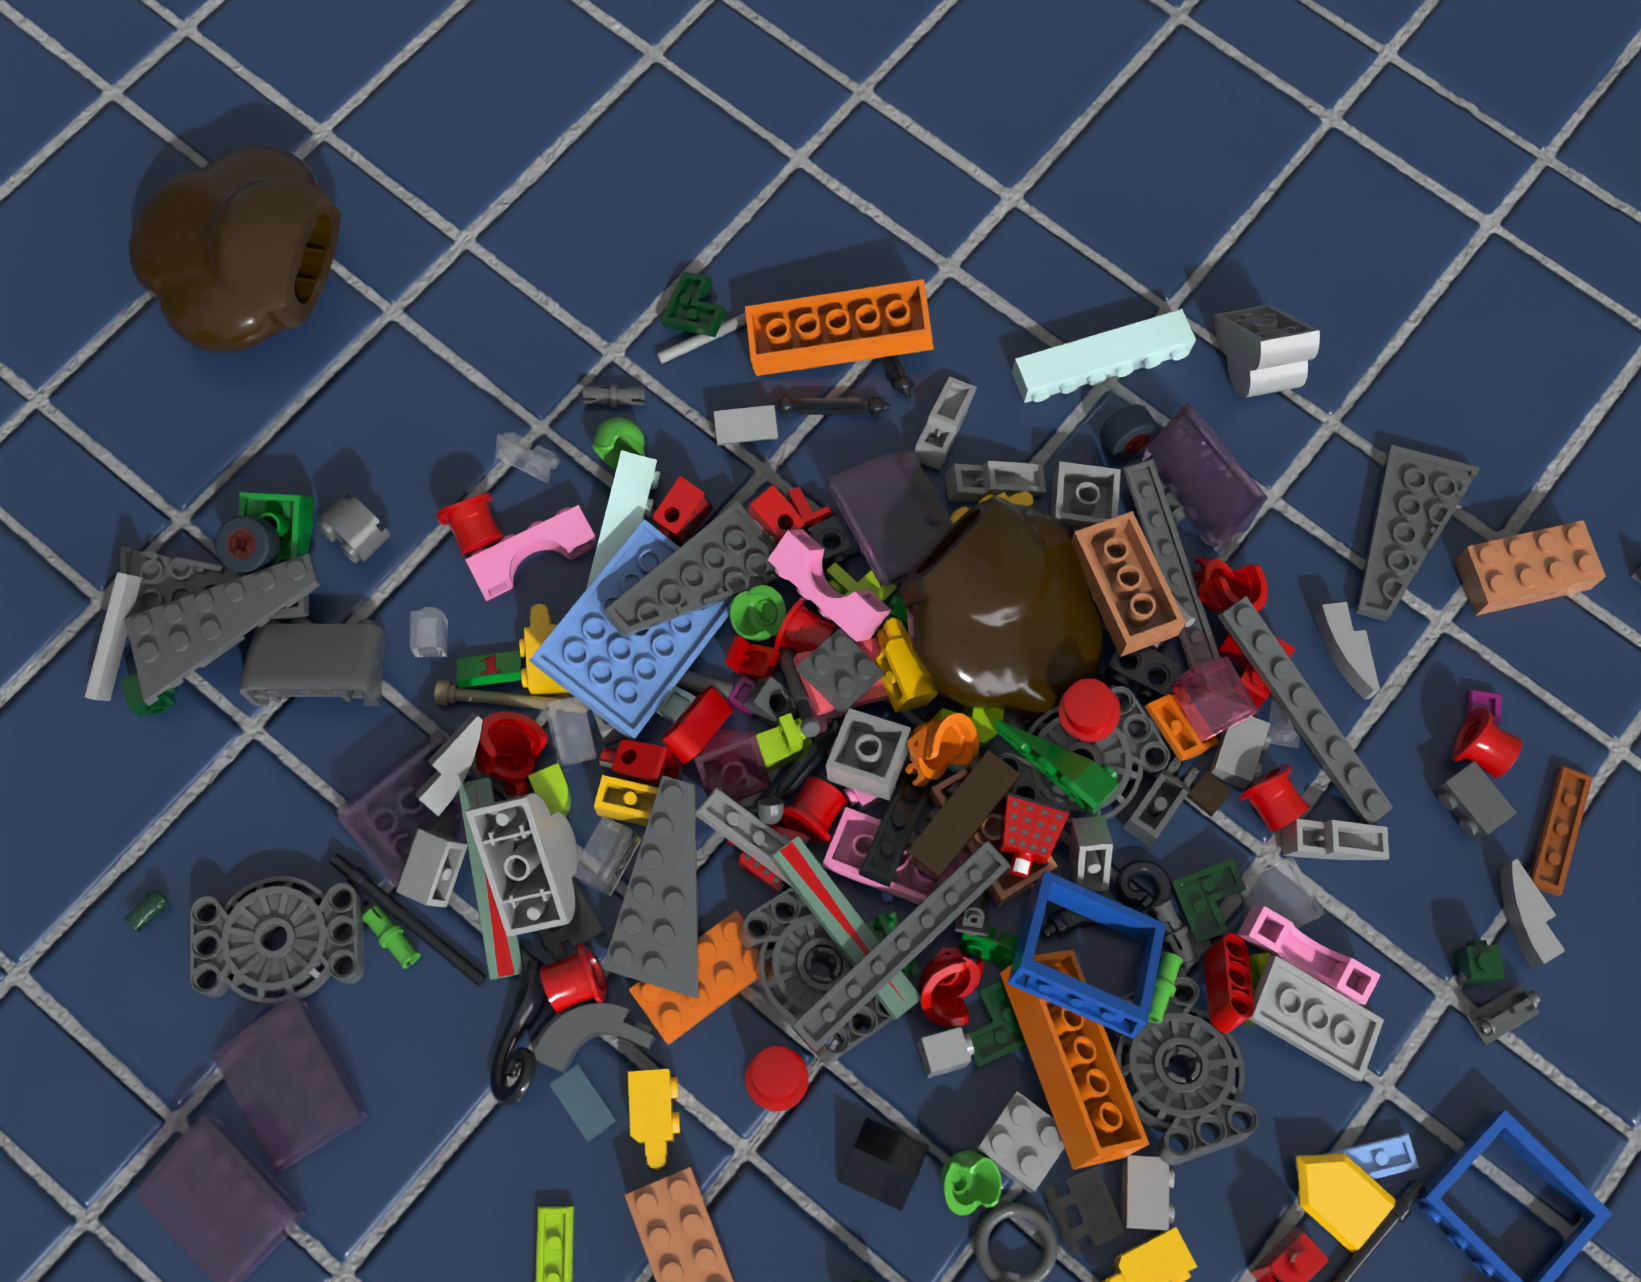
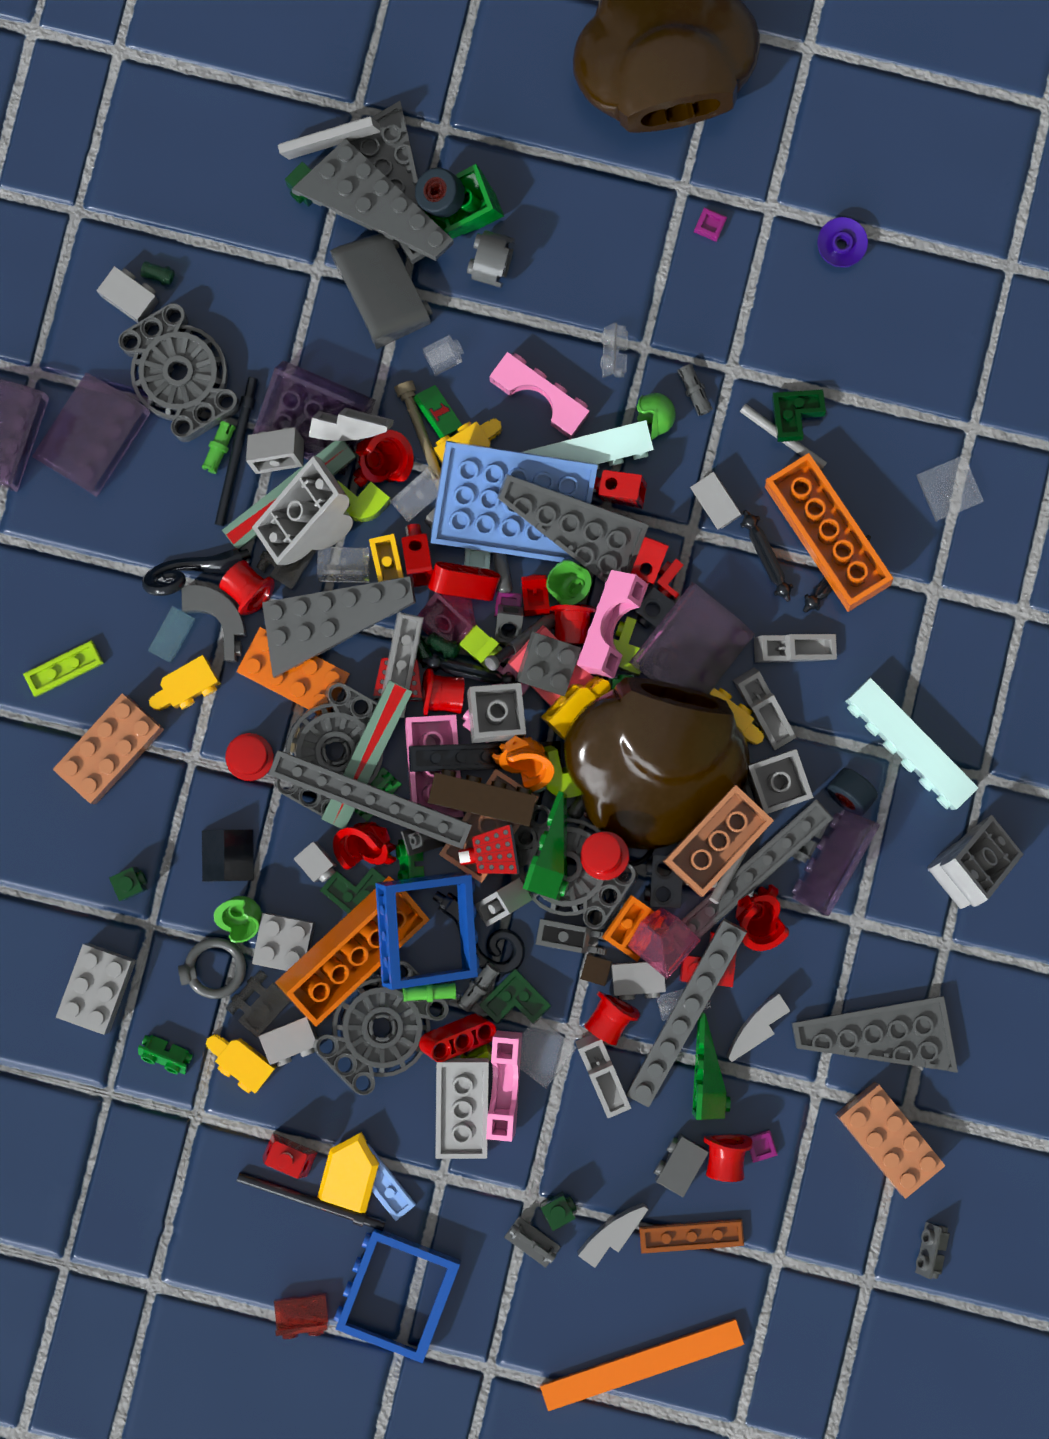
camera: 65 degrees right, 15 degrees up
(150, 957) = (128, 295): none -> light grey brick
(447, 302) = (710, 224): none -> magenta tile
(471, 524) = (537, 343): red piece -> none
(536, 176) = (850, 233): none -> dark purple dish
(759, 785) = (448, 648): none -> clear green pin
(770, 810) = (425, 663): dark grey hinge -> none
(850, 204) = (950, 488): none -> clear tile
(1396, 730) = (709, 1088): none -> green wedge

